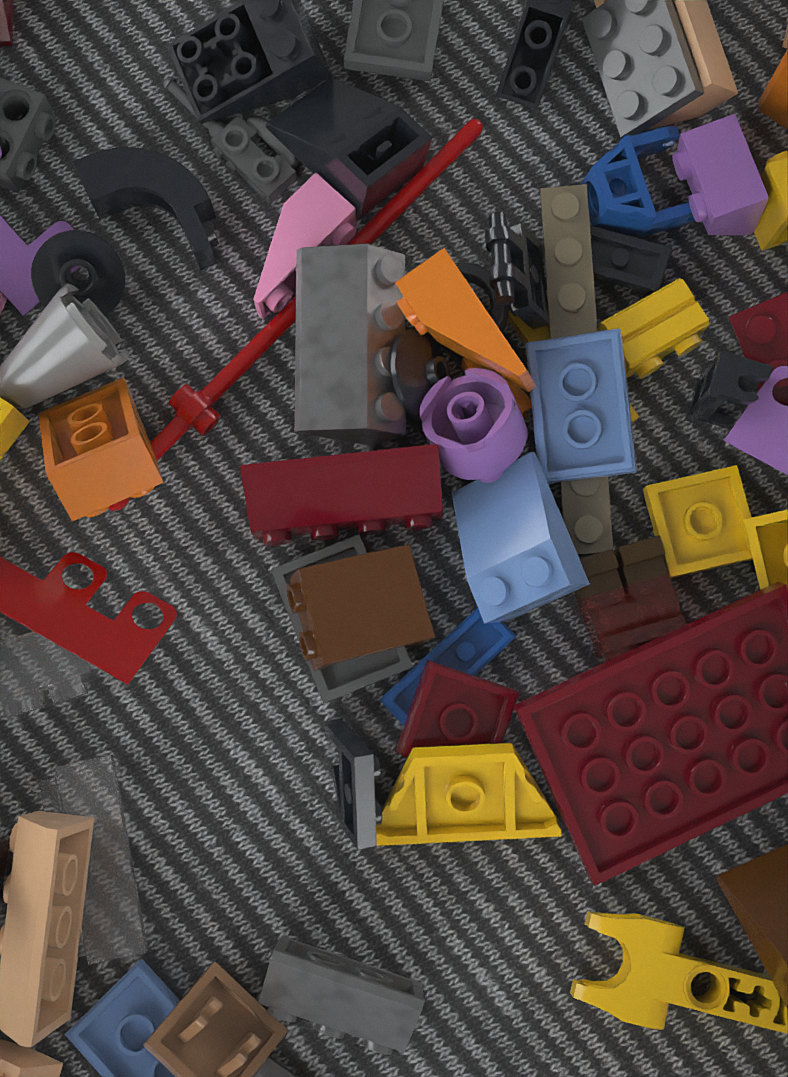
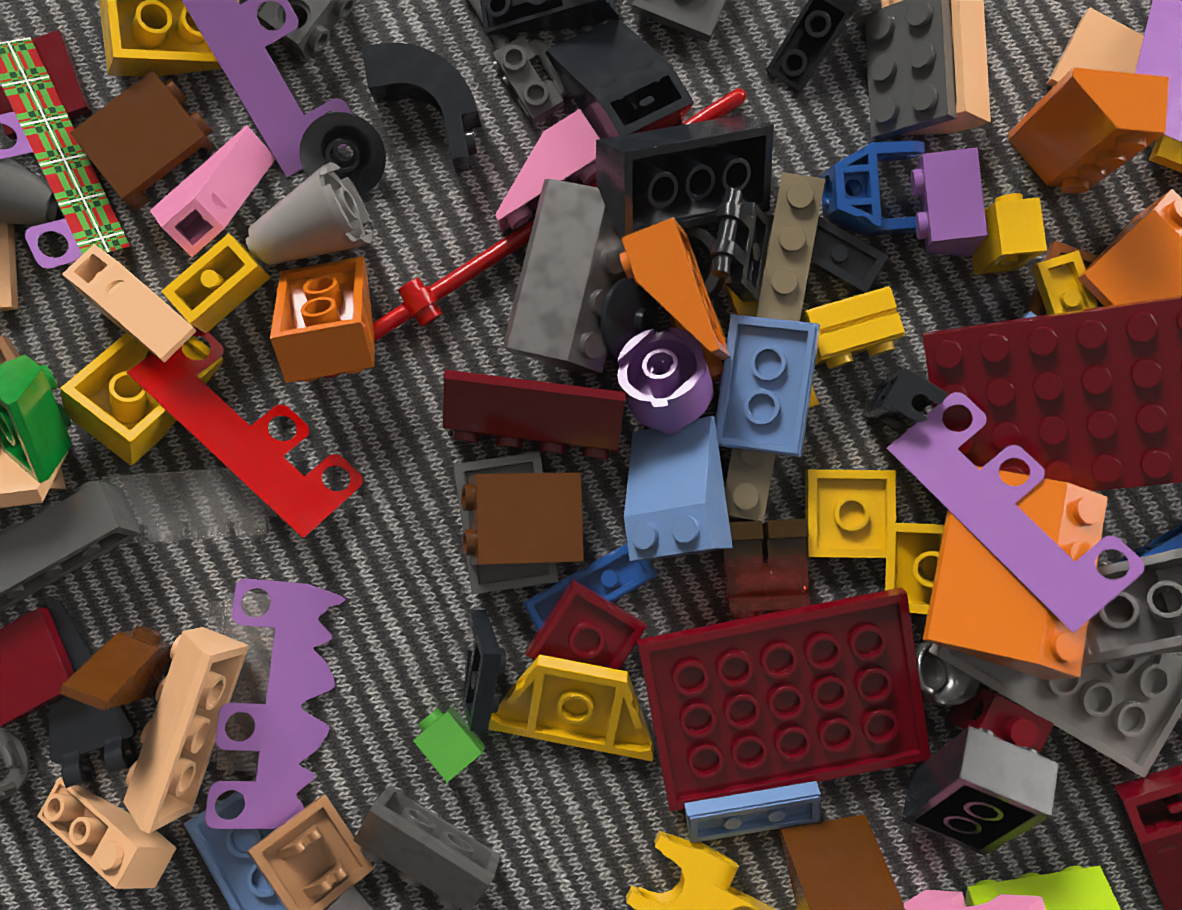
camera: 15 degrees right, 5 degrees up
(150, 899) = (282, 728): none -> medium lavender piece
(335, 870) = (448, 742): none -> bright green brick
(439, 207) = (684, 171): none -> black slope
(683, 864) = (753, 812): none -> medium blue tile

